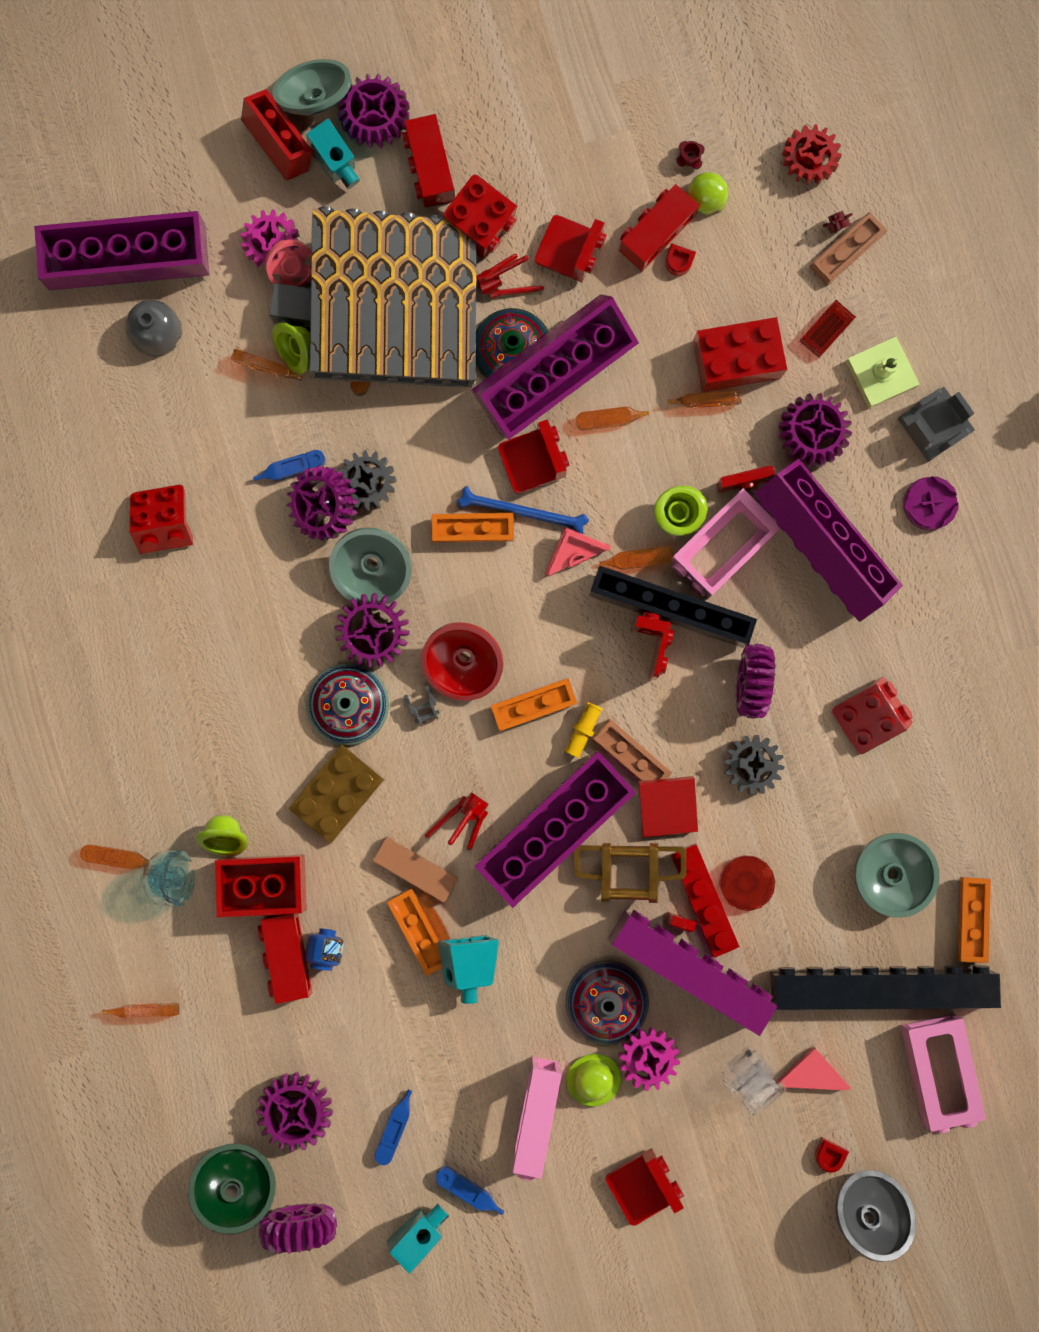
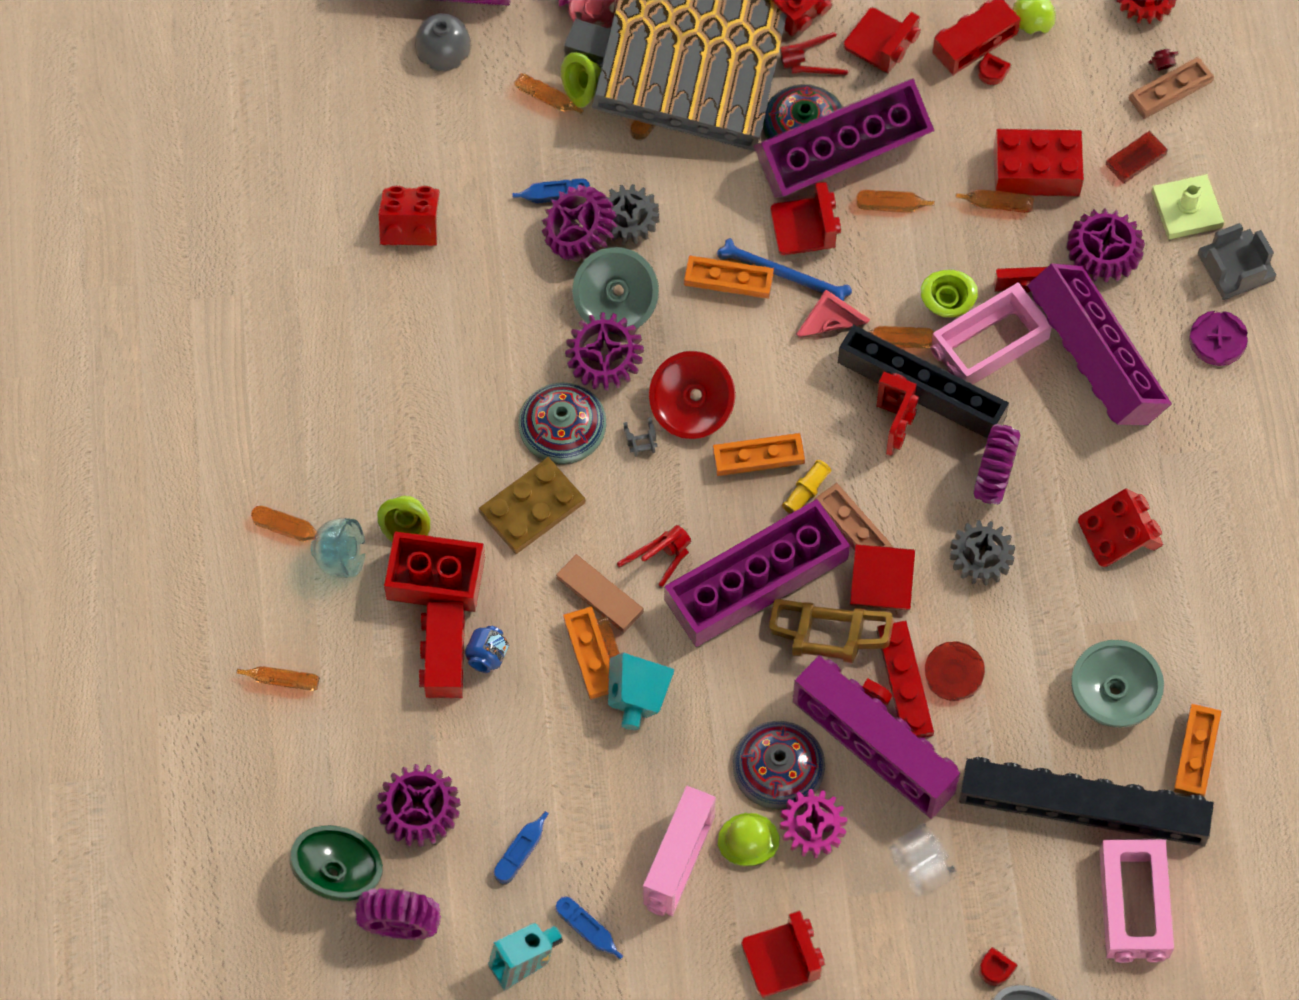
camera: 20 degrees right, 20 degrees down
(814, 1073) = (993, 877): coral tile -> none

